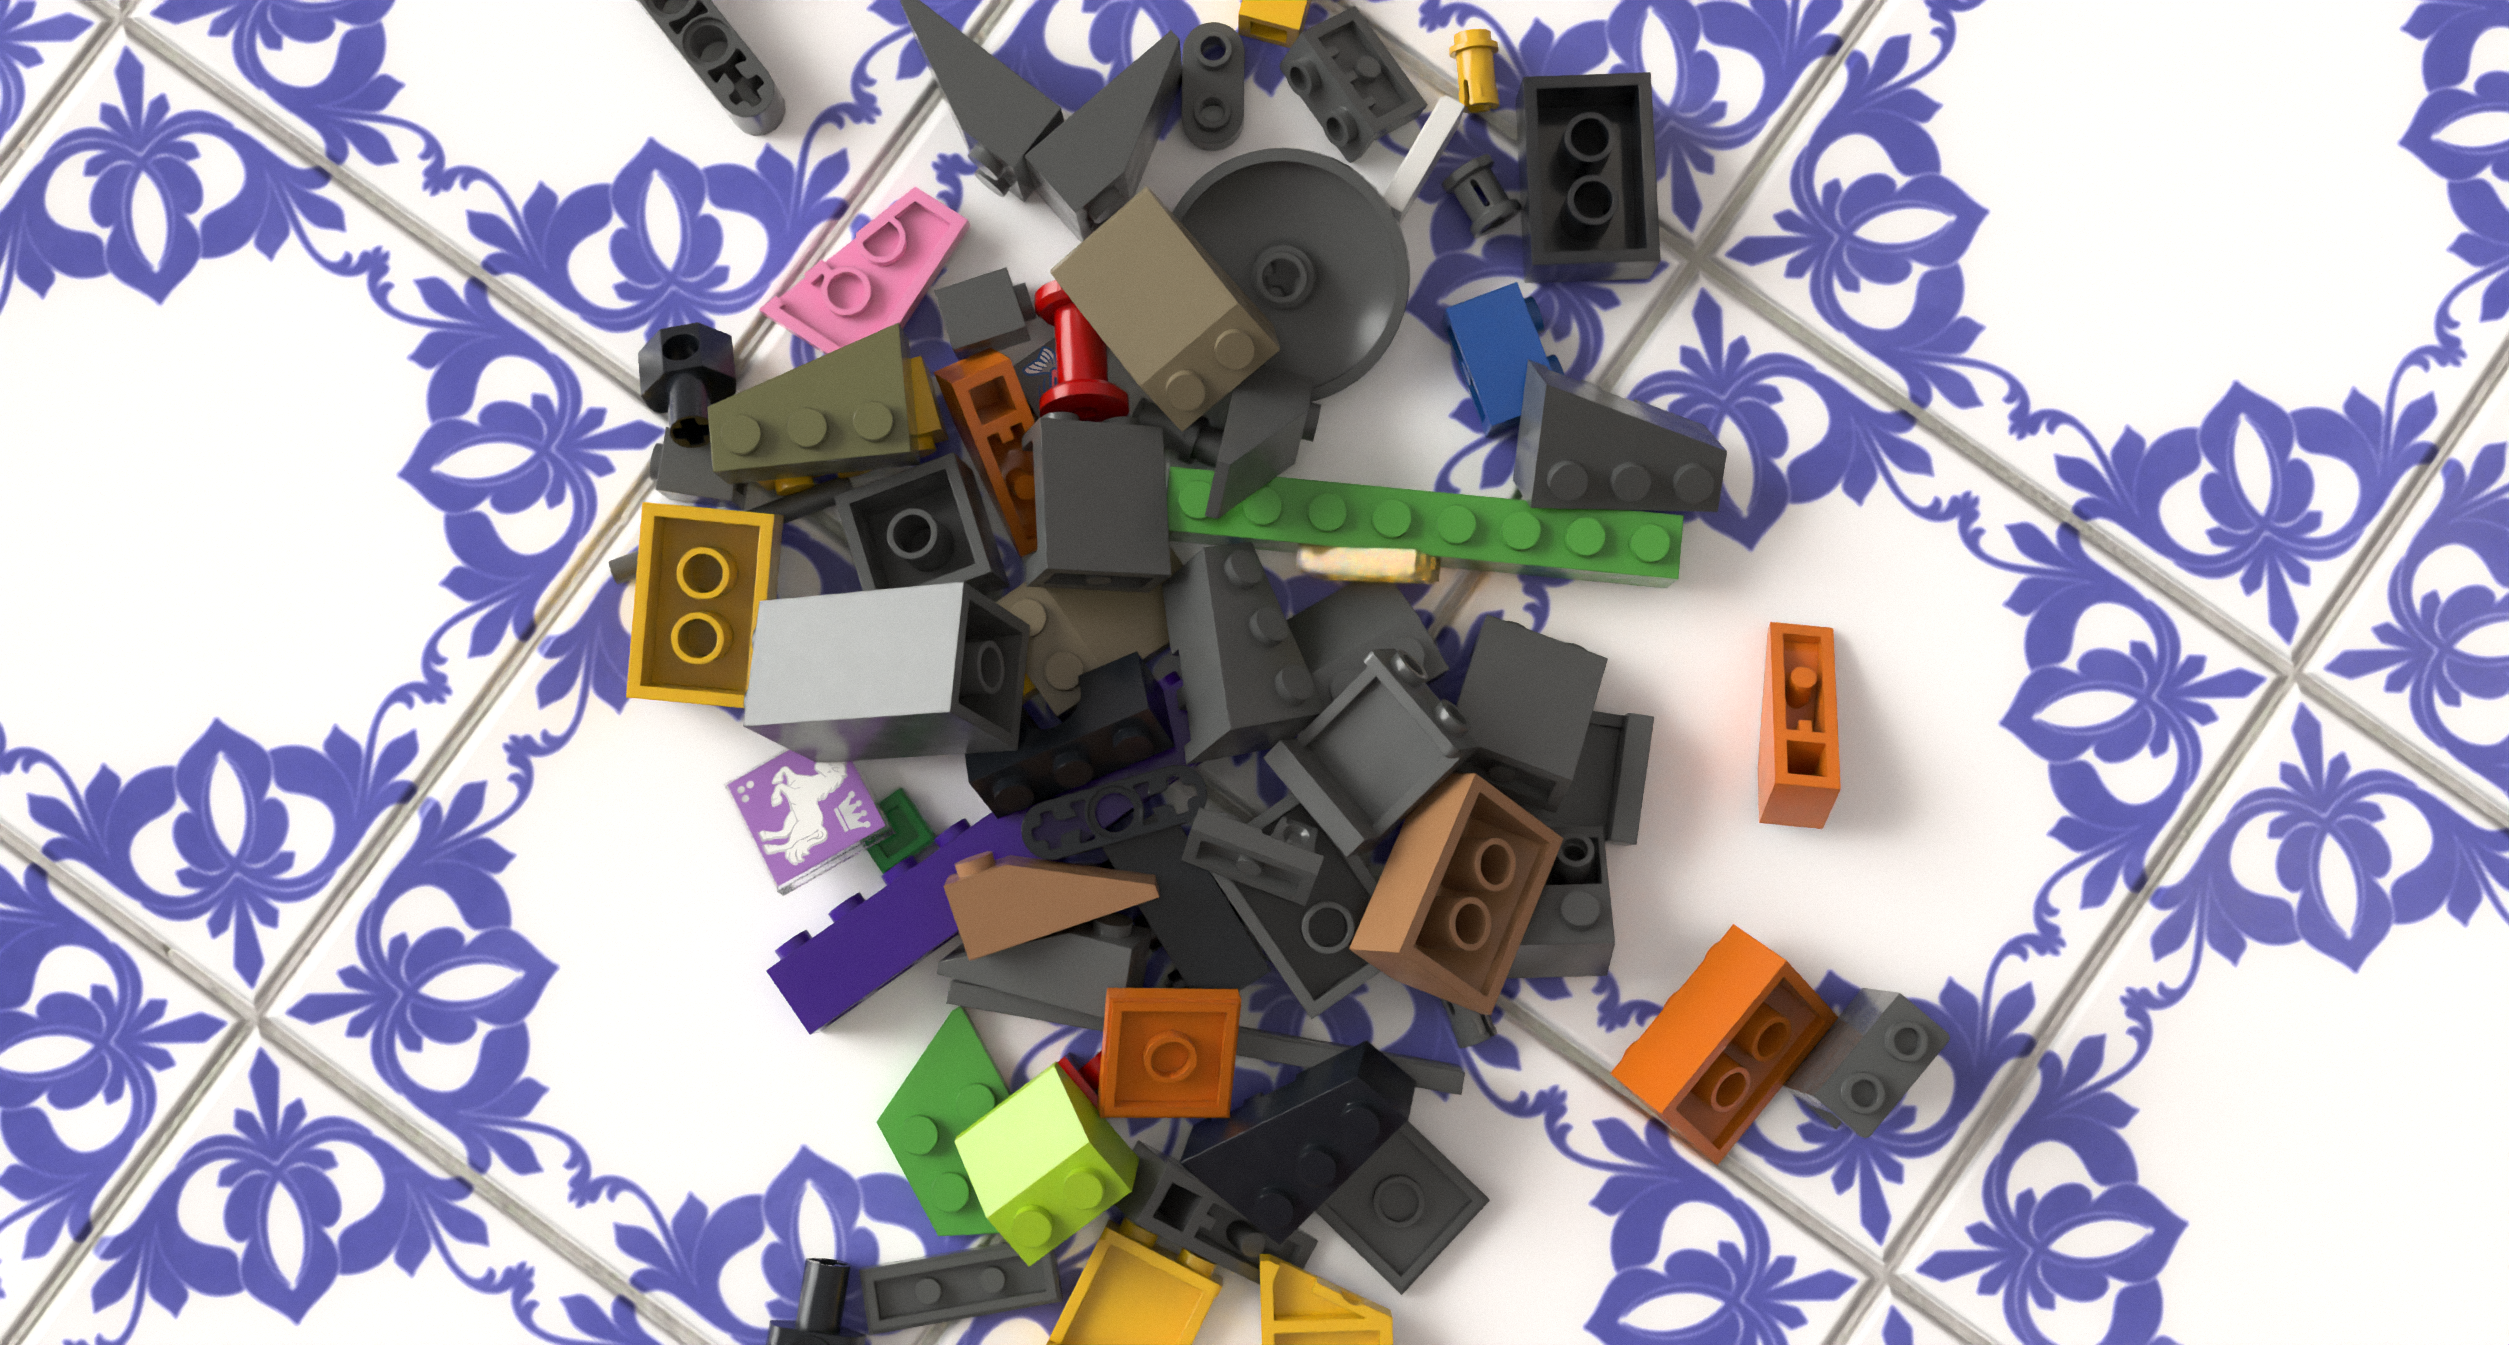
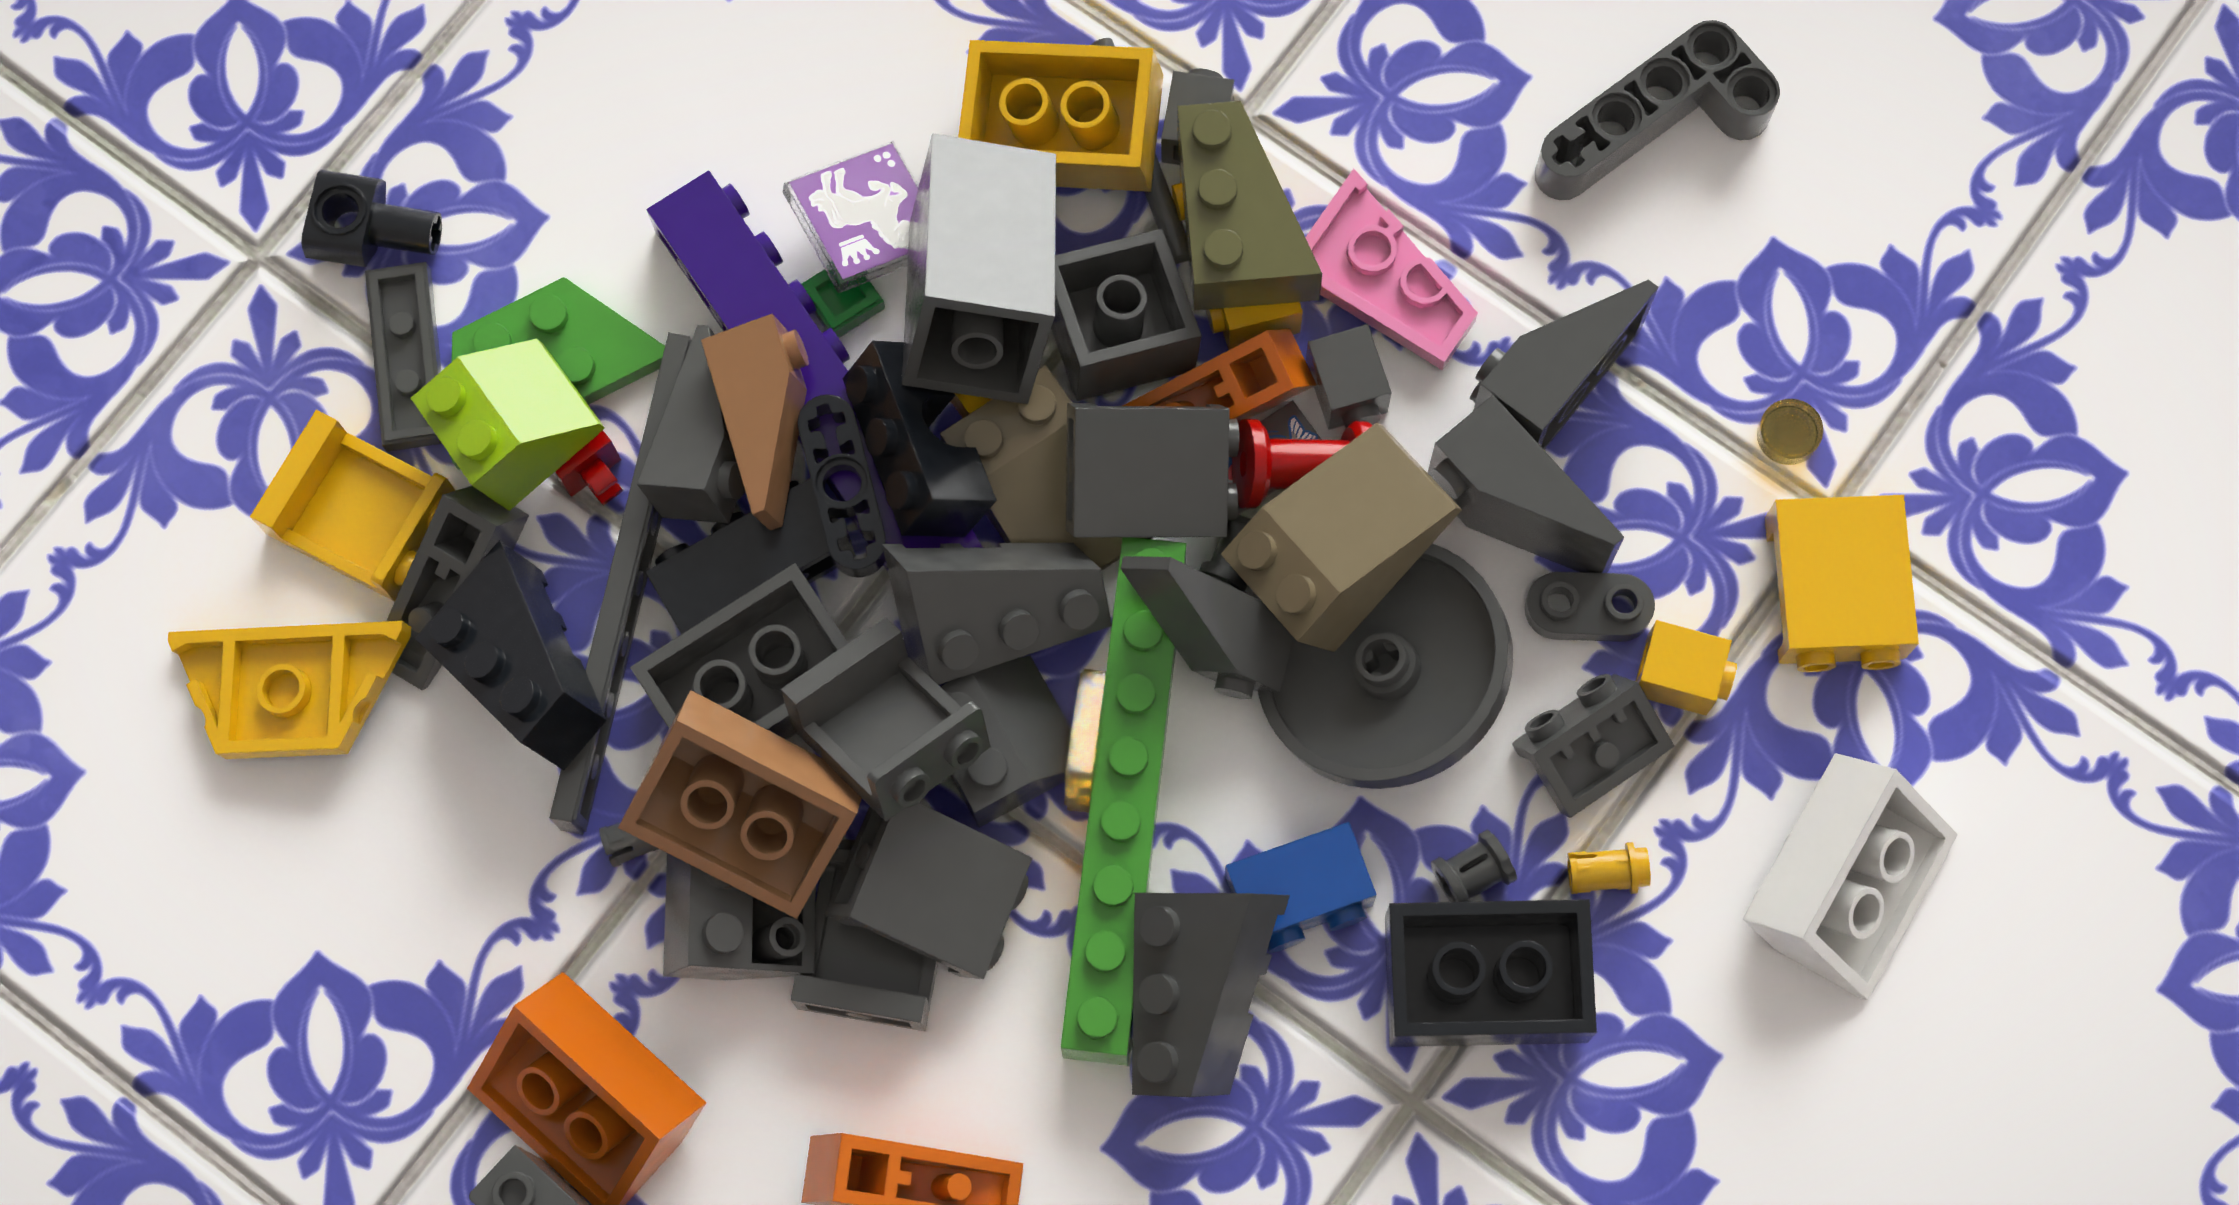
camera: 95 degrees right, 10 degrees down
(685, 373) = (1289, 99): black piece -> none
(1168, 1053) = (605, 531): orange tile -> none
(1275, 863) = (780, 631): dark grey hinge -> none
(1403, 1206) = (454, 768): dark grey tile -> none
(1423, 156) = (1509, 808): white tile -> none

